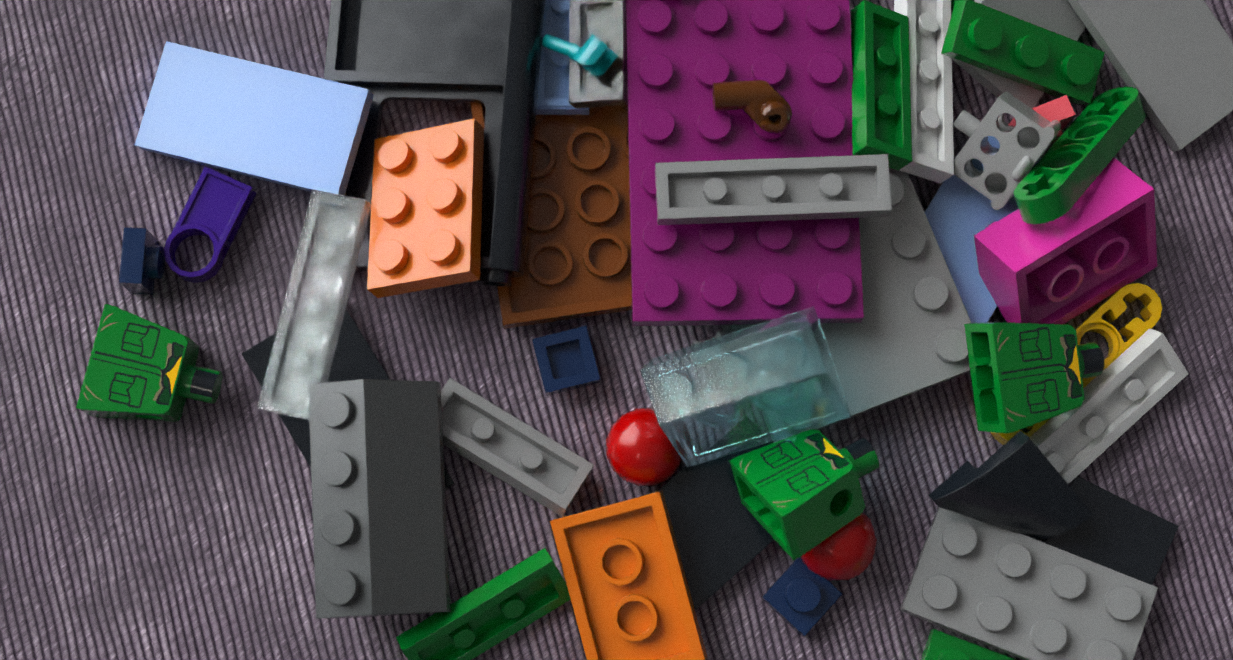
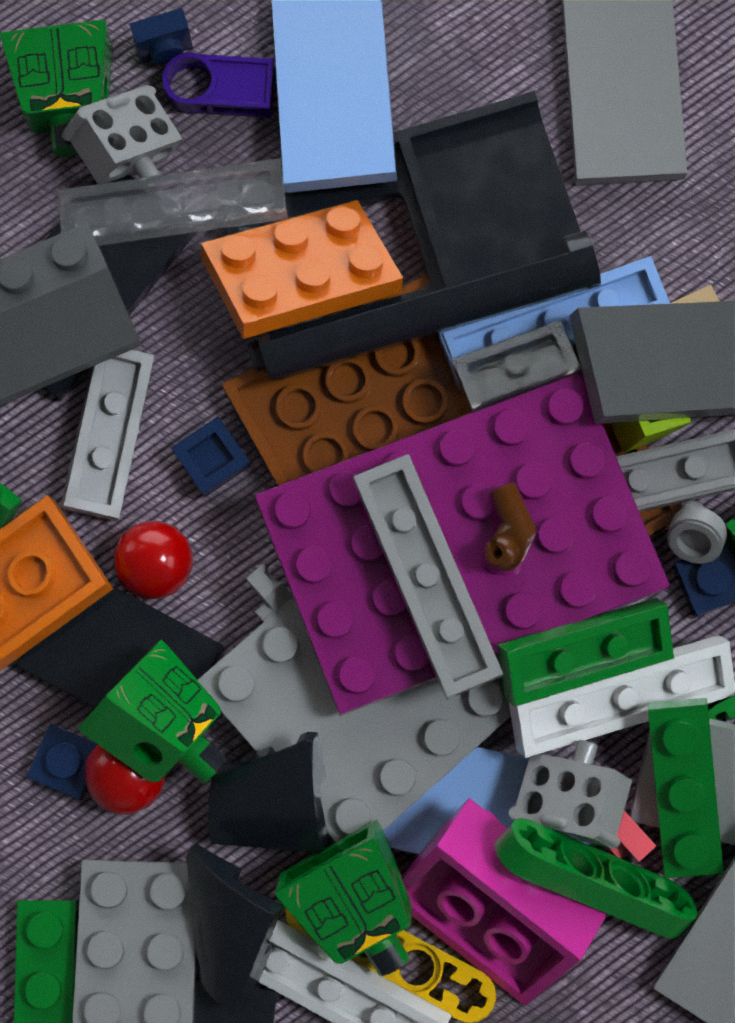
camera: 75 degrees right, 0 degrees up
(227, 329) = (123, 135): none -> light grey piece
(593, 55) = (502, 361): teal hand -> none
(746, 388) = (231, 624): clear light blue slope -> none
(912, 413) = (271, 799): none -> black slope

